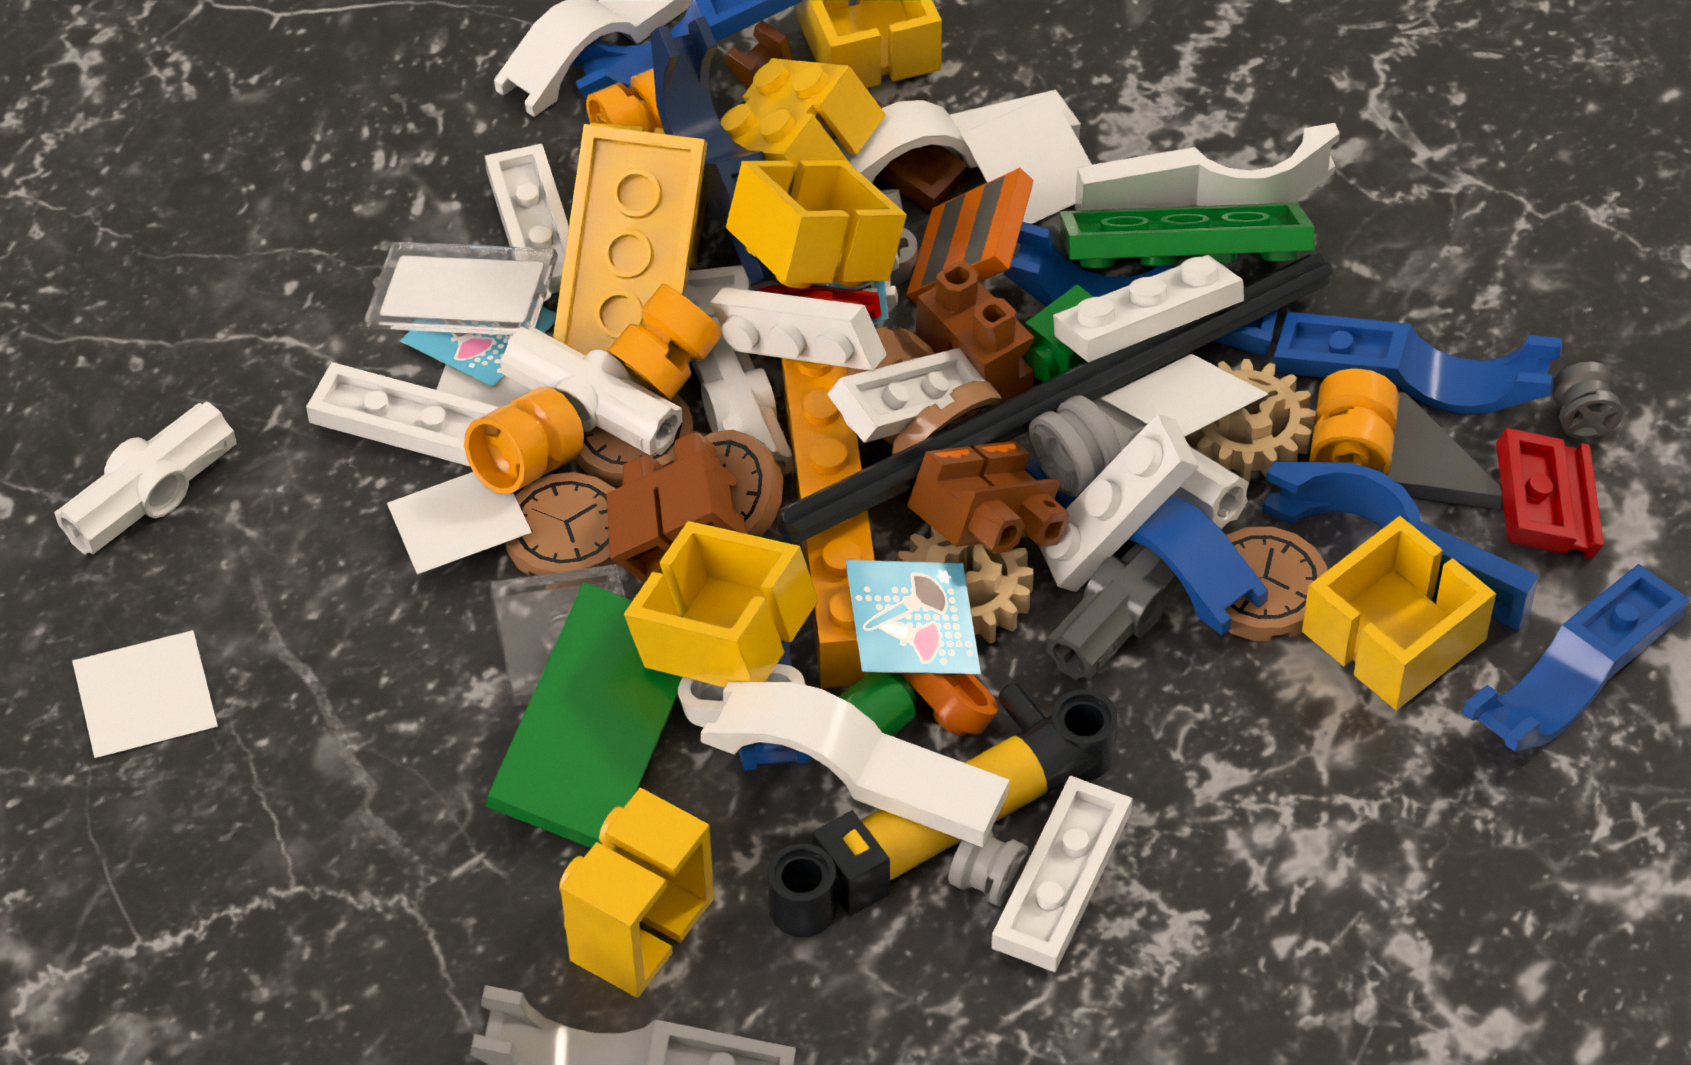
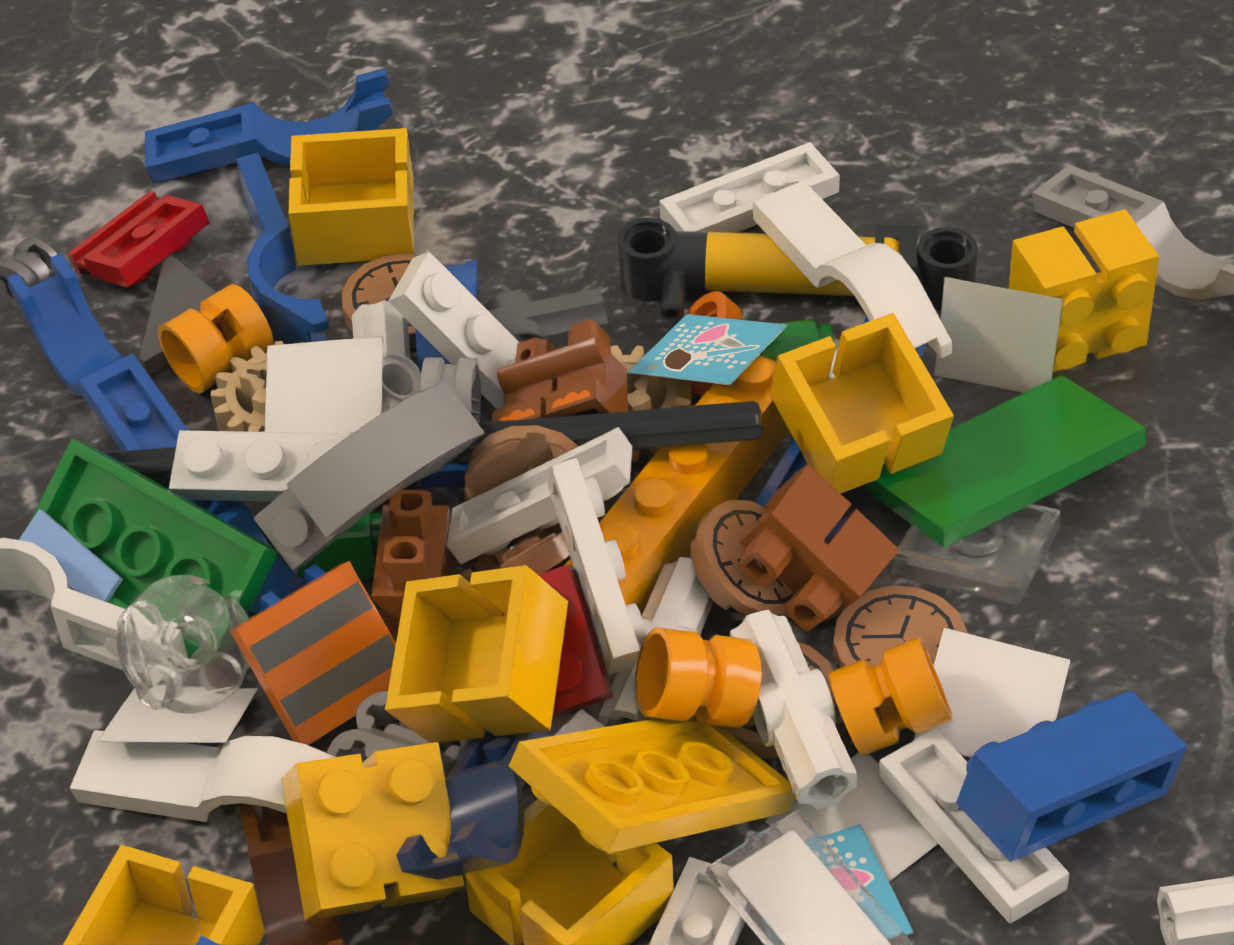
camera: 140 degrees left, 5 degrees down
(346, 457) = (1070, 774): none -> blue brick
(702, 792) = (998, 335): none -> white sticker
(1026, 305) = (367, 470): none -> light grey arch
(1086, 168) = (154, 665): none -> clear plate
(1239, 205) = (82, 567): none -> light blue window

